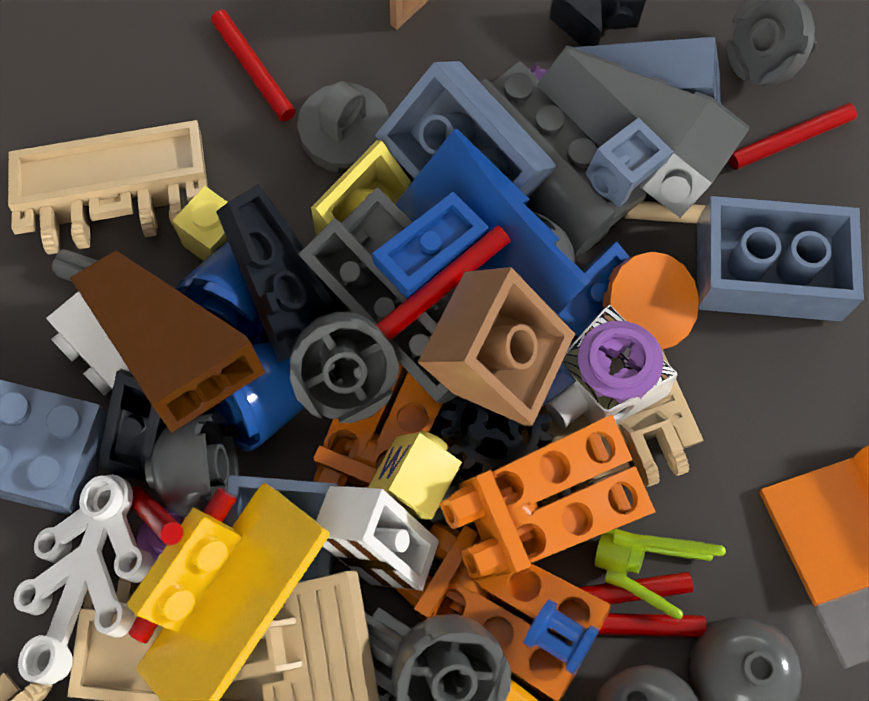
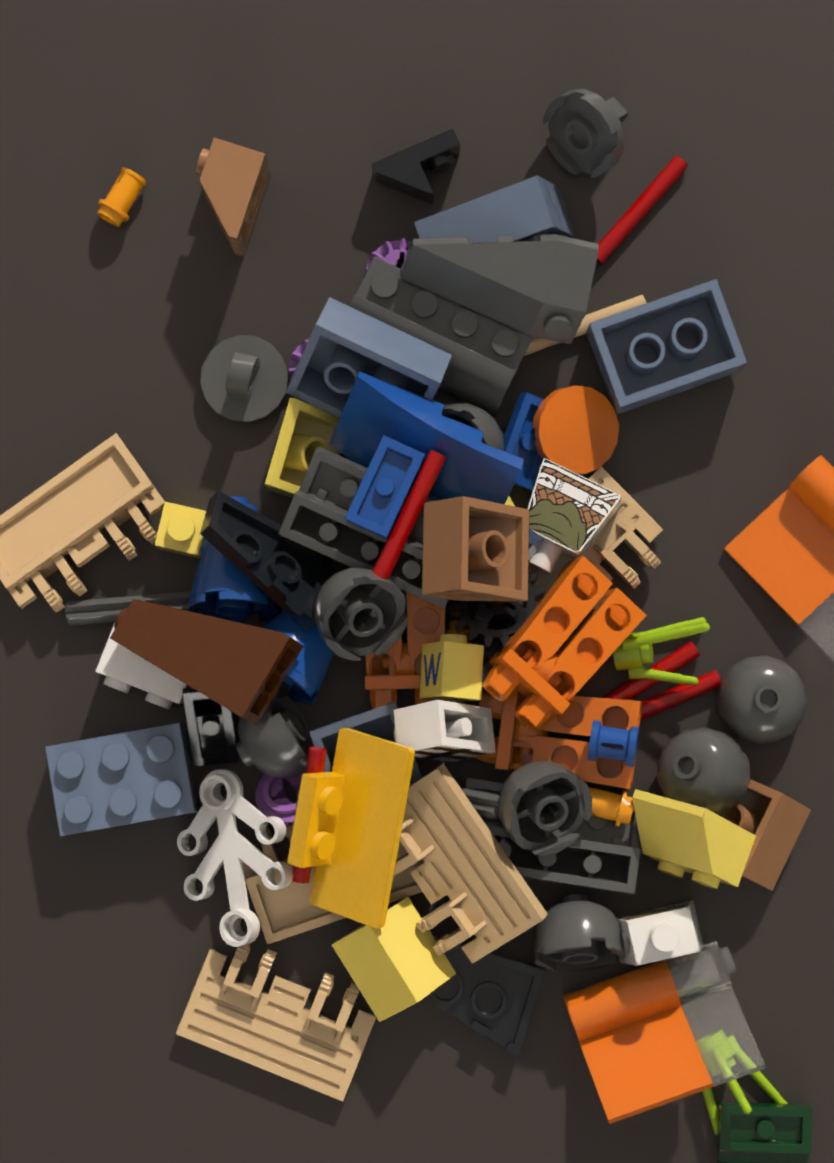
camera: 20 degrees left, 15 degrees up
(156, 517) = (271, 789): red bar -> none
(253, 65) = (134, 354): red bar -> none
(612, 340) = (557, 492): medium lavender gear -> none
(627, 161) = (509, 327): sand blue bracket -> none

